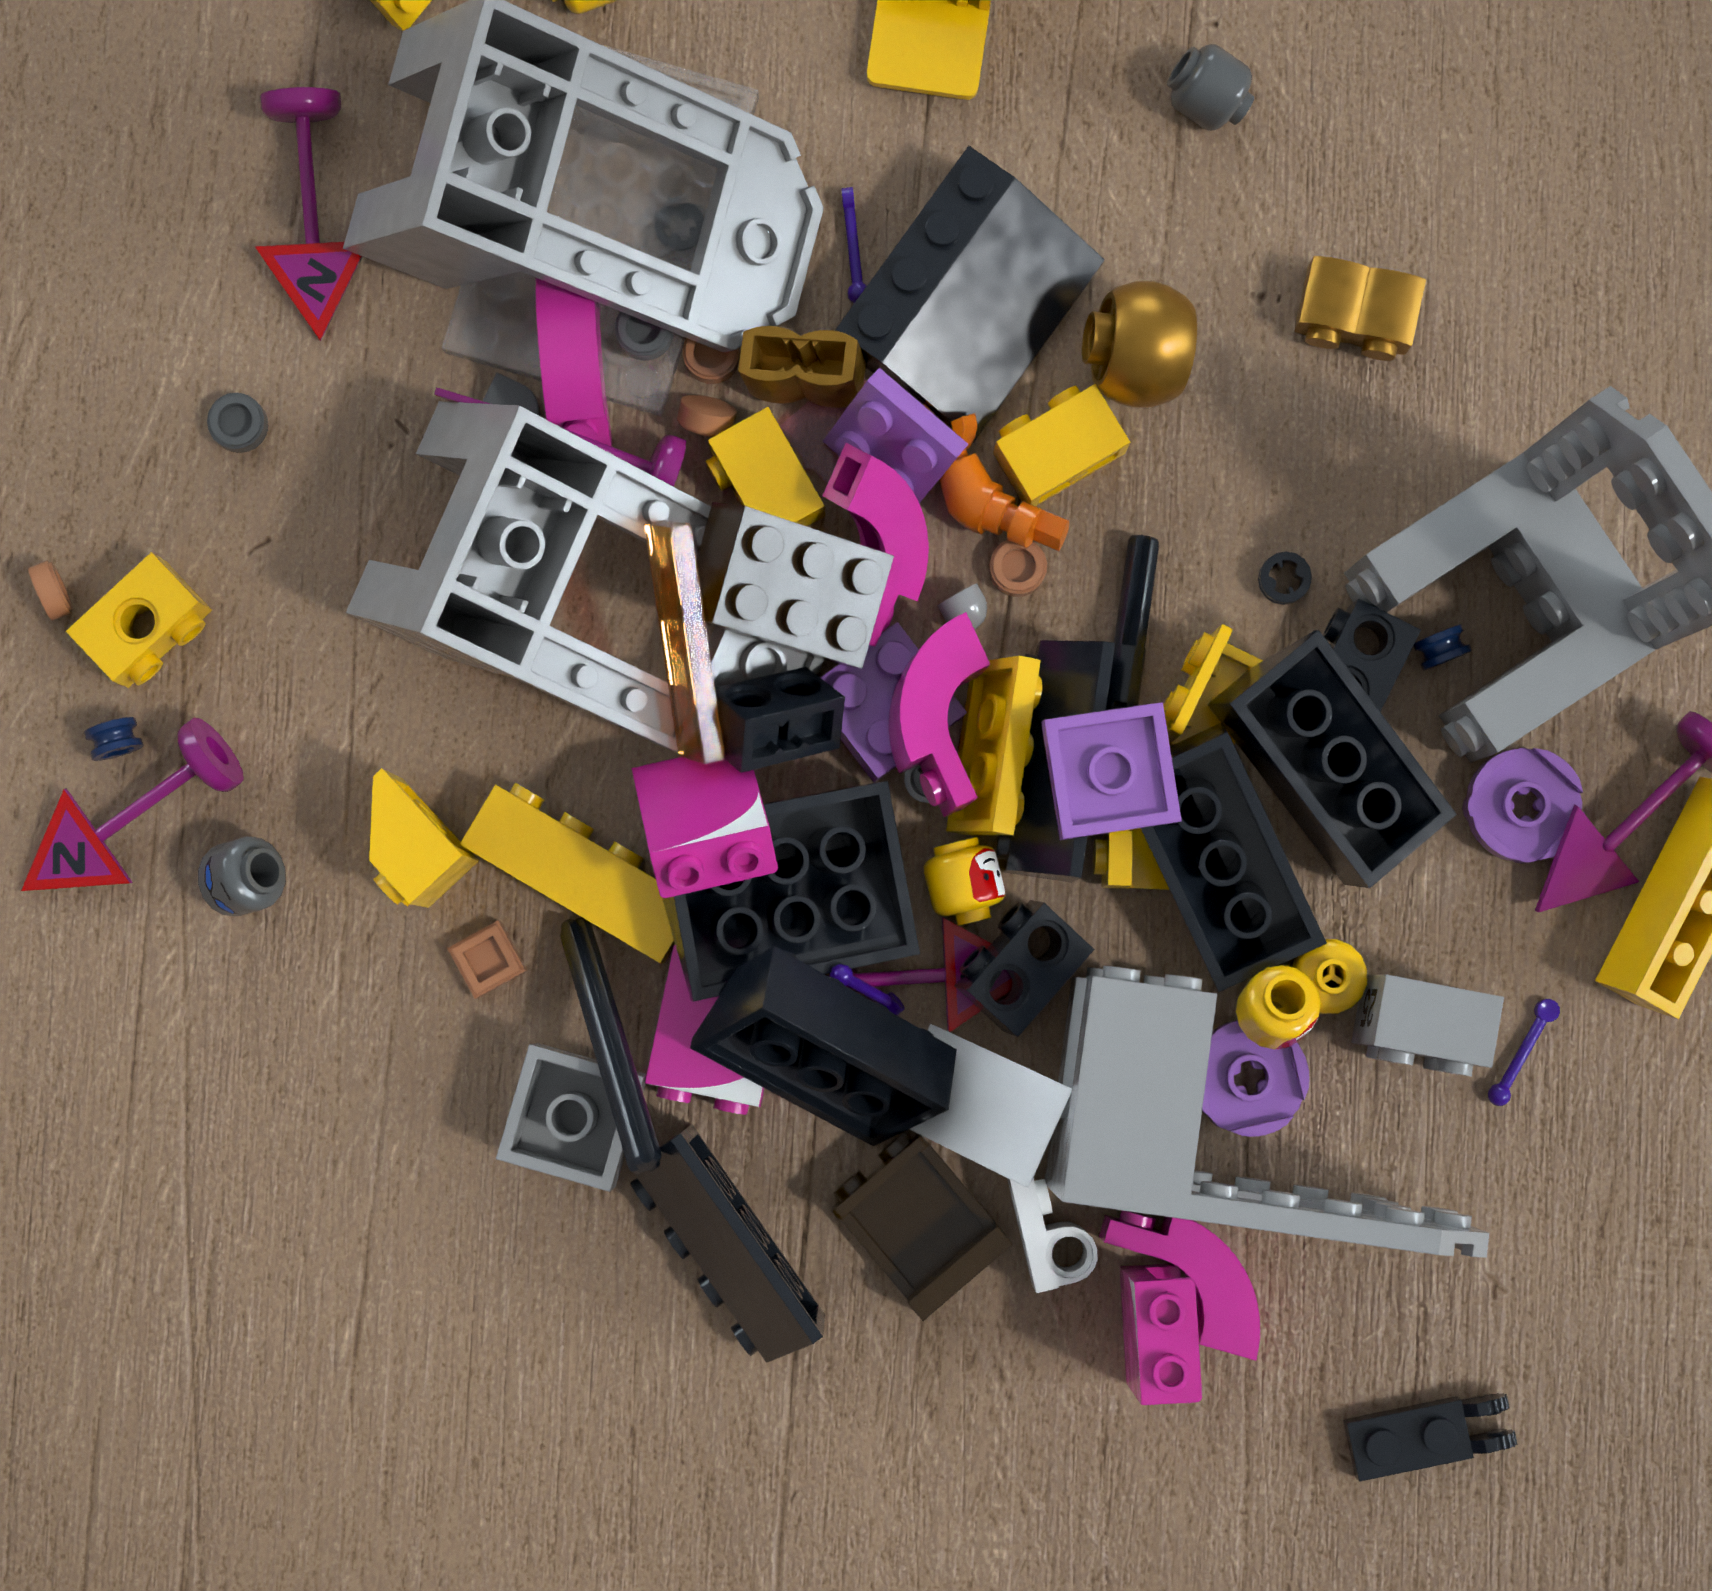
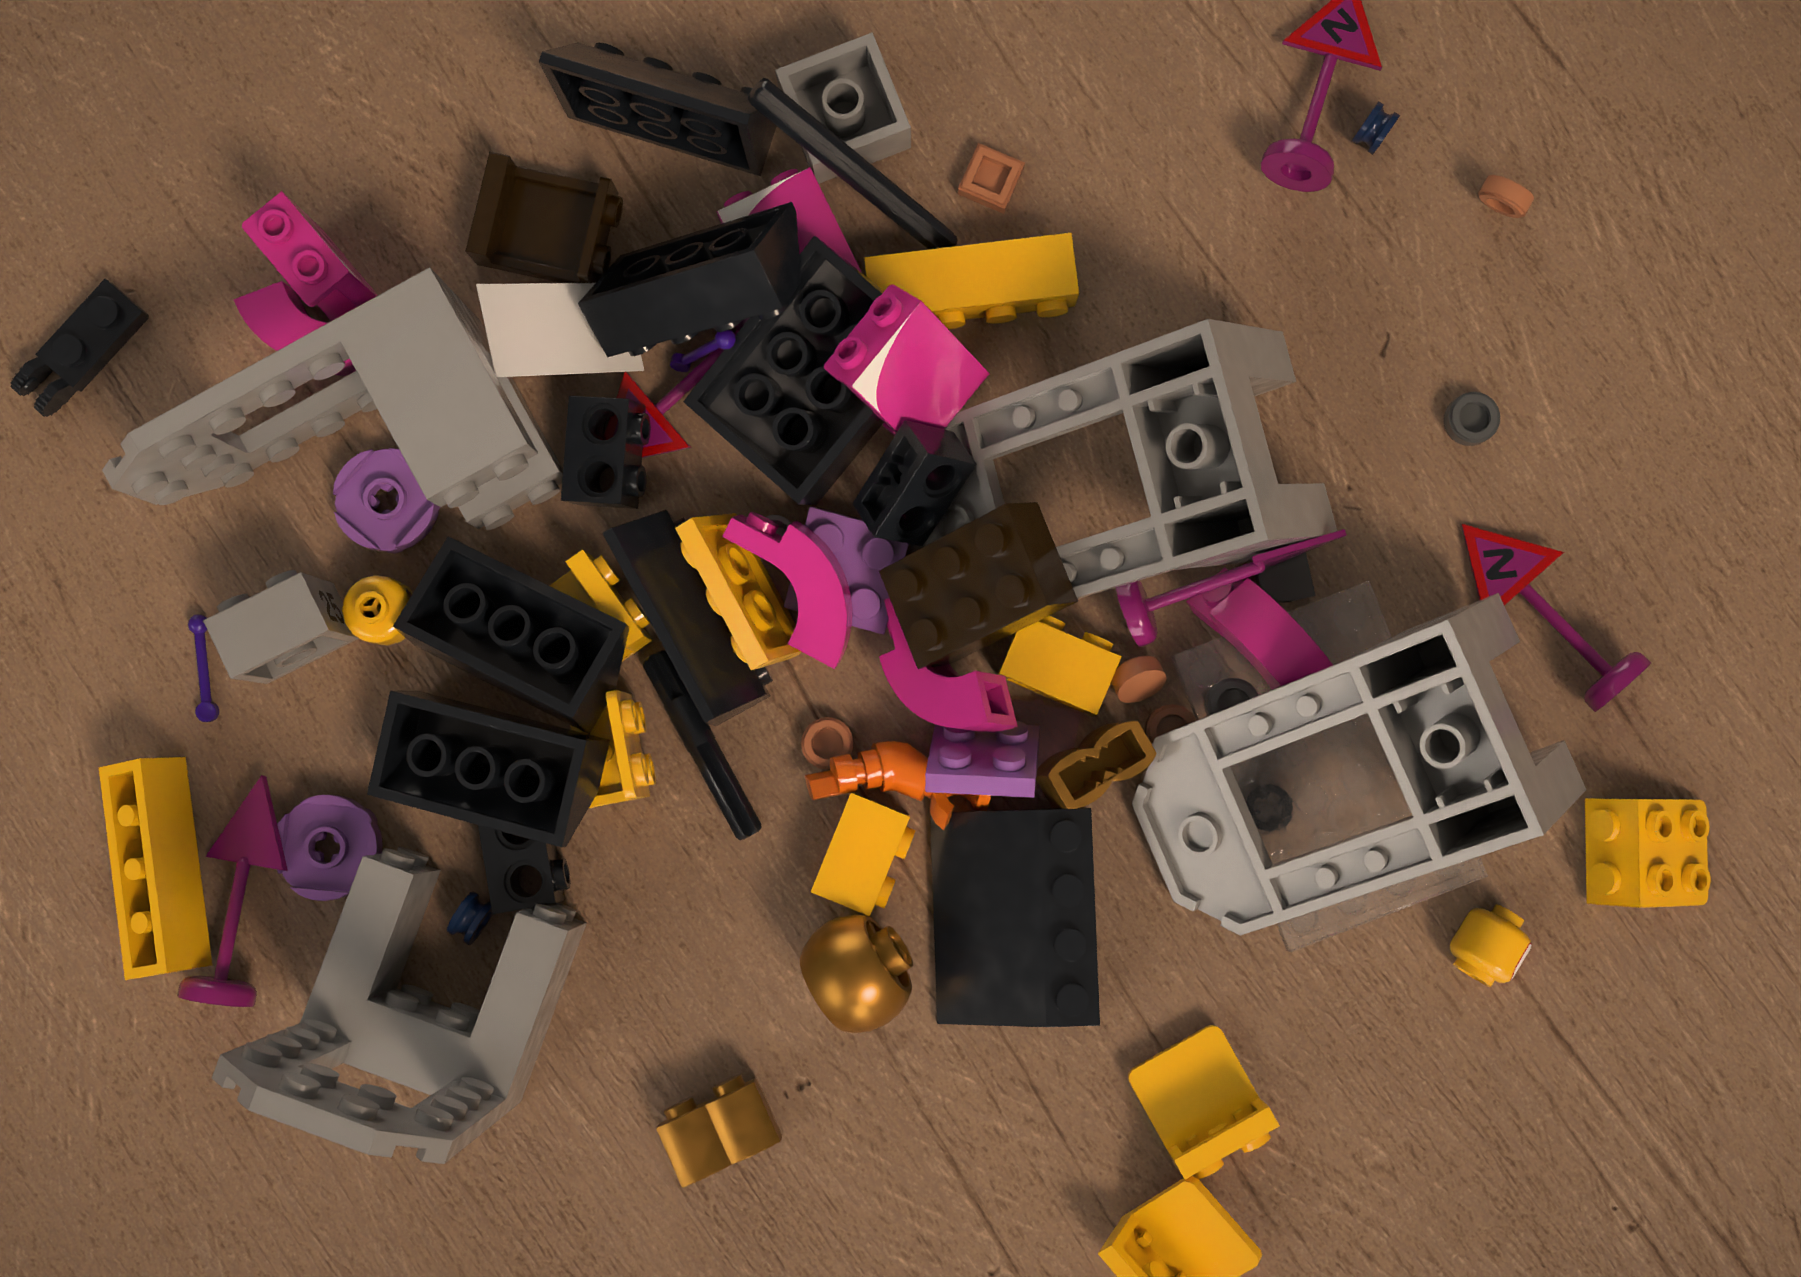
camera: 150 degrees right, 0 degrees up
(107, 626) = (1441, 197): yellow brick -> none
(241, 876) = (1207, 98): dark grey head -> none
(412, 845) = (1107, 207): yellow slope -> none
(684, 640) = (1019, 482): clear orange tile -> none
(857, 286) = (1101, 861): dark purple hinge -> none
(964, 880) = (692, 482): yellow head -> none
(968, 600) = (842, 682): light grey hinge -> none
(1039, 1239) = (427, 253): white plate -> none
(1111, 771) = (634, 622): medium lavender plate -> none
(1211, 87) = (955, 1217): dark grey head -> none
(1278, 1007) = (384, 568): yellow head -> none
(1301, 572) = (618, 898): black bush -> none

